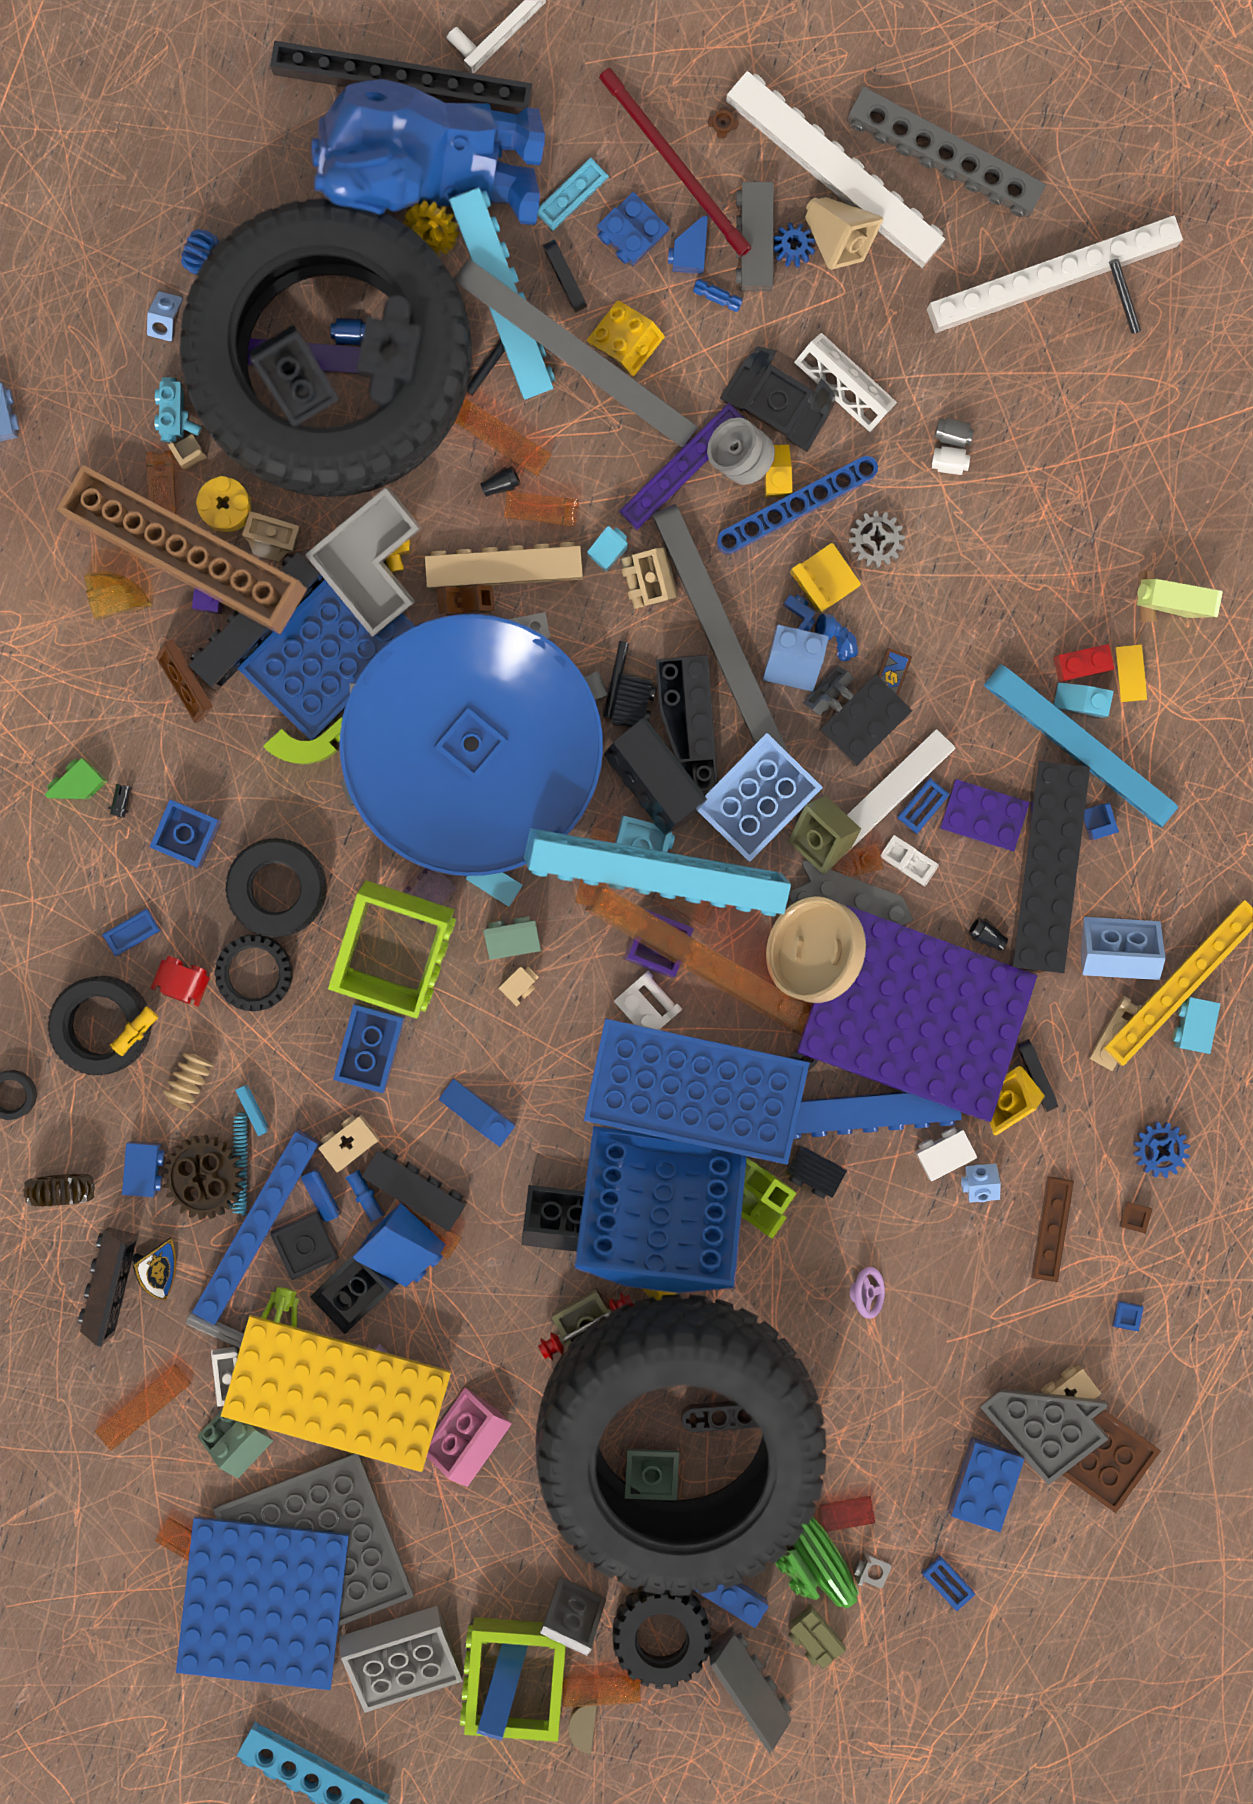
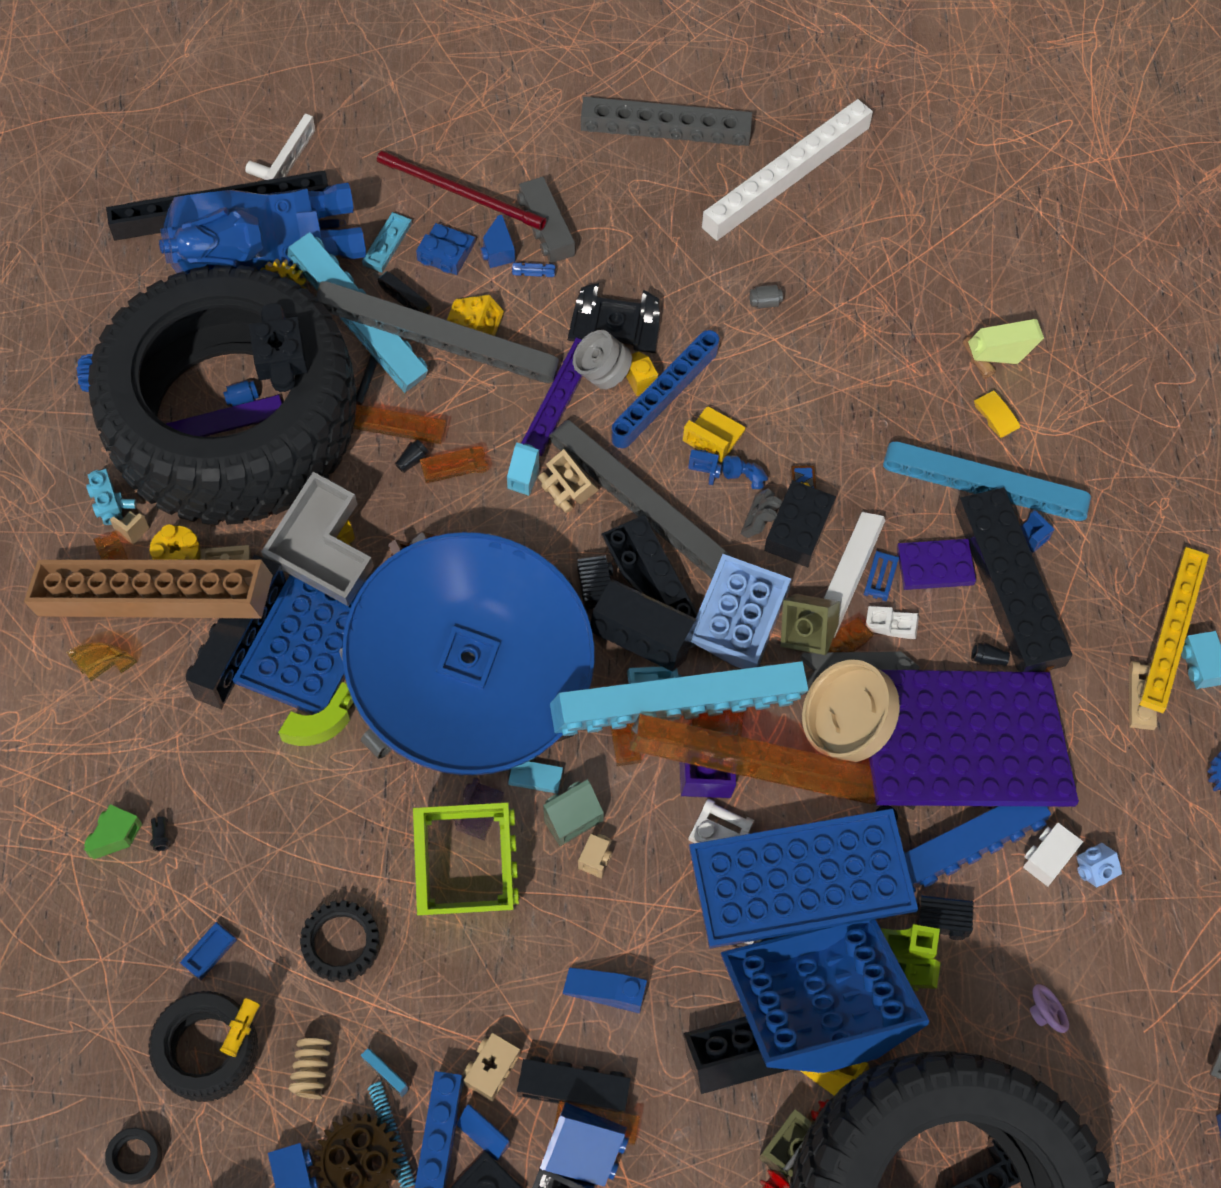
camera: 25 degrees left, 25 degrees down
(164, 311) = (75, 427): light blue bracket -> none
(180, 982) = (271, 972): red brick -> none
(184, 681) = (187, 704): reddish brown tile -> none
(185, 833) = (231, 836): blue brick -> none
(205, 603) = (186, 633): dark purple brick -> none
(241, 878) = (323, 820): black tyre -> none
(293, 375) = (200, 393): black slope -> none
(364, 1196) = (527, 1114): blue pin -> none
(369, 1048) = (477, 965): blue brick -> none
(504, 567) = (443, 515): tan brick -> none
(616, 679) = (572, 567): black bar -> none
(723, 115) = (486, 158): reddish brown plate -> none
(795, 658) = (718, 492): medium blue slope -> none
(803, 242) = (579, 215): blue gear -> none
(833, 167) = (587, 158): white brick -> none
(841, 231) = (612, 189): tan slope -> none
(849, 374) = (664, 285): white fence -> none
(865, 539) = (742, 389): light grey gear -> none
(950, 460) = (773, 316): white brick -> none
(1016, 1100) = (1089, 777): yellow slope -> none
(1037, 1074) = (1095, 755): black beam -> none
(1052, 1229) = (1182, 886): reddish brown tile -> none
(1083, 663) = (955, 419): red brick -> none
(1083, 699) = (972, 444): medium azure slope -> none
(1122, 948) = (1108, 623): light blue slope -> none
(1125, 296) = (854, 169): black bar -> none

